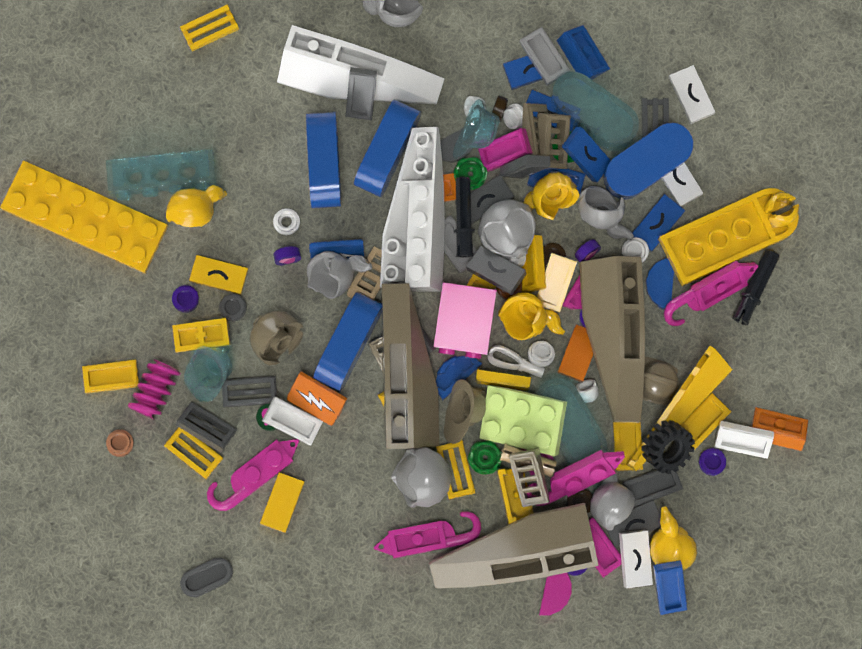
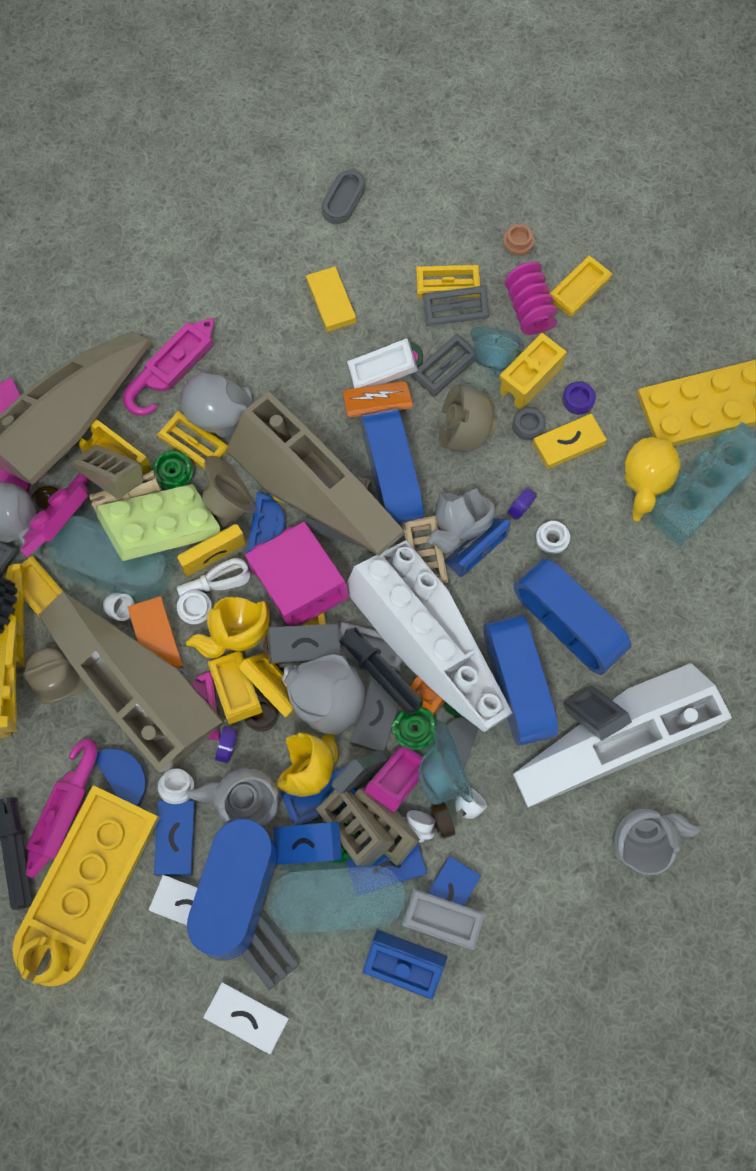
camera: 140 degrees right, 10 degrees down
(255, 473) = (376, 304): dark pink plate -> none

